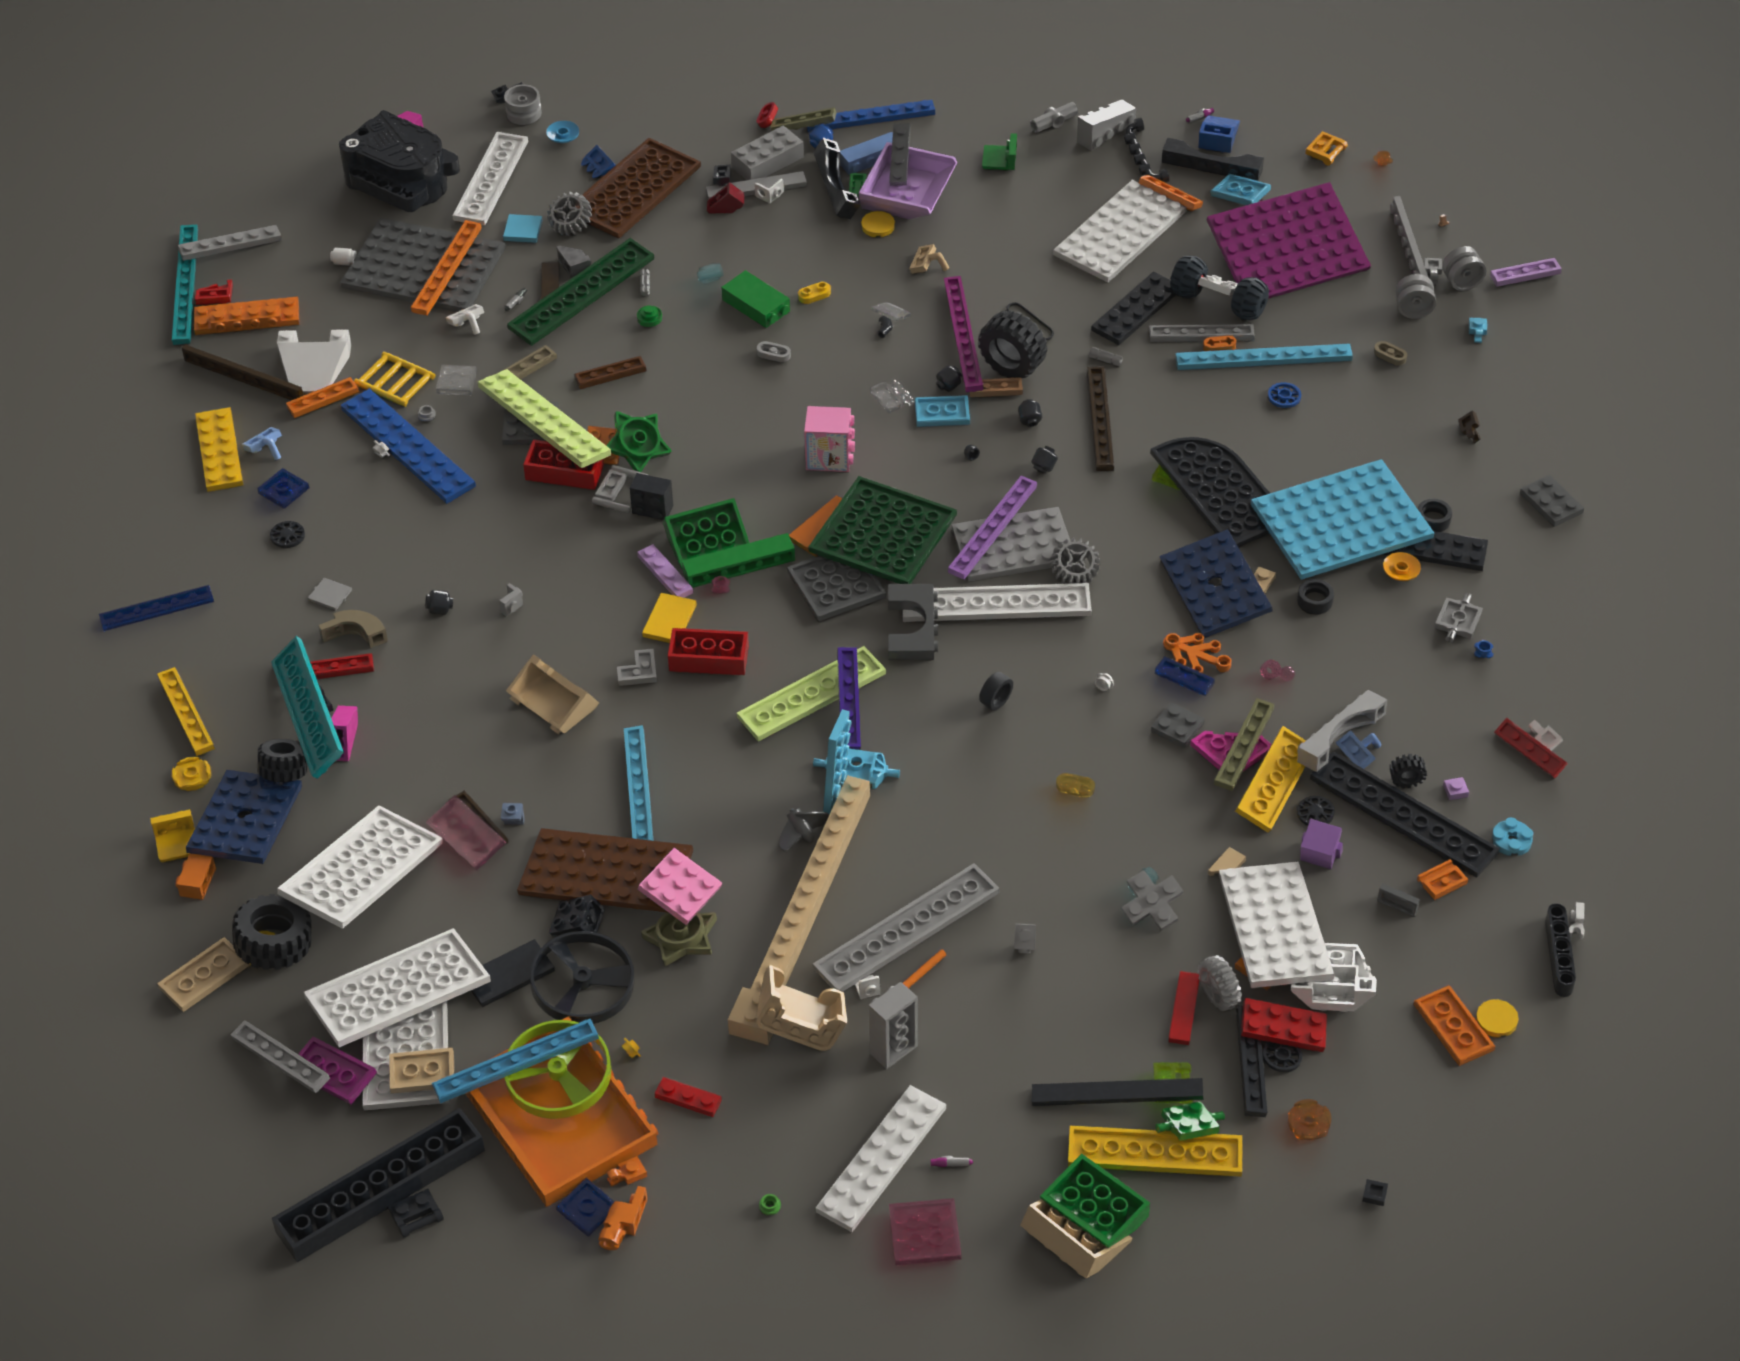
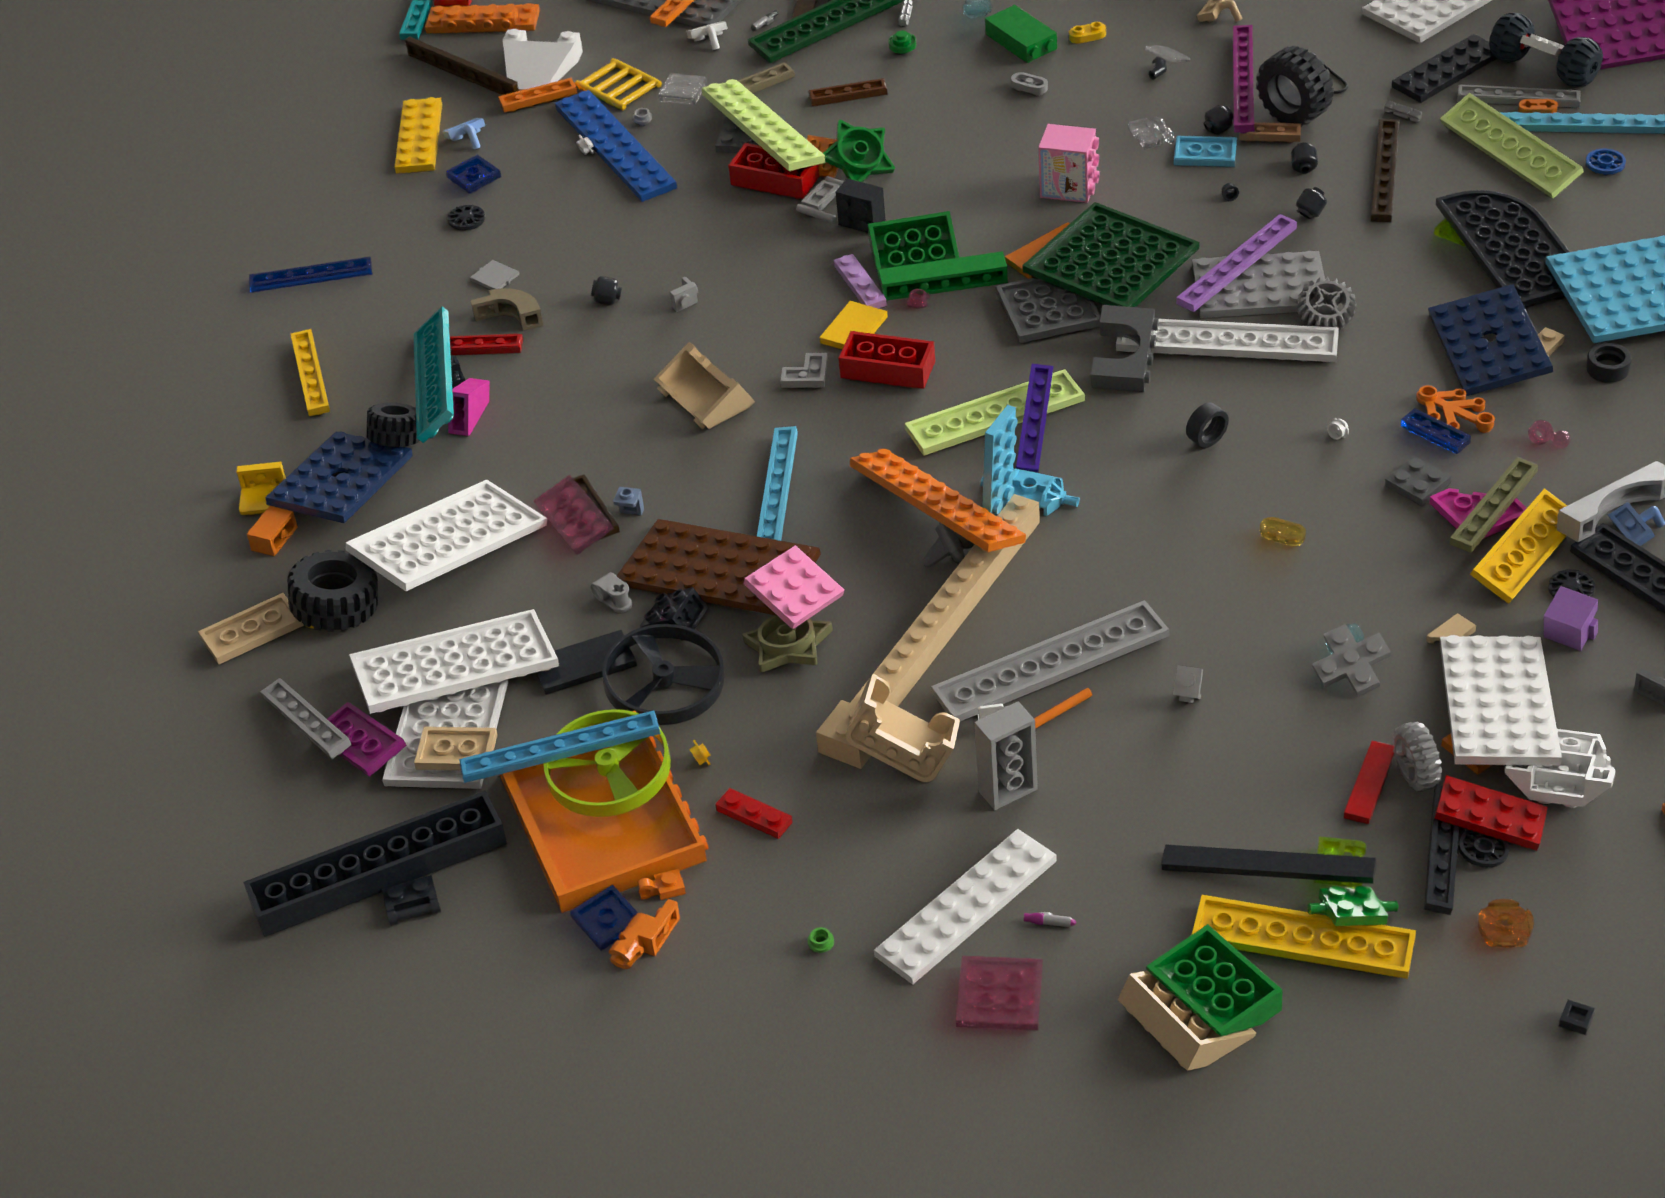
camera: 15 degrees right, 5 degrees down
(191, 773) = (299, 433): yellow tile -> none
(518, 904) = (612, 592): none -> light grey piece
(783, 788) = (938, 500): none -> orange plate
(1204, 386) = (1511, 145): none -> yellowish green plate

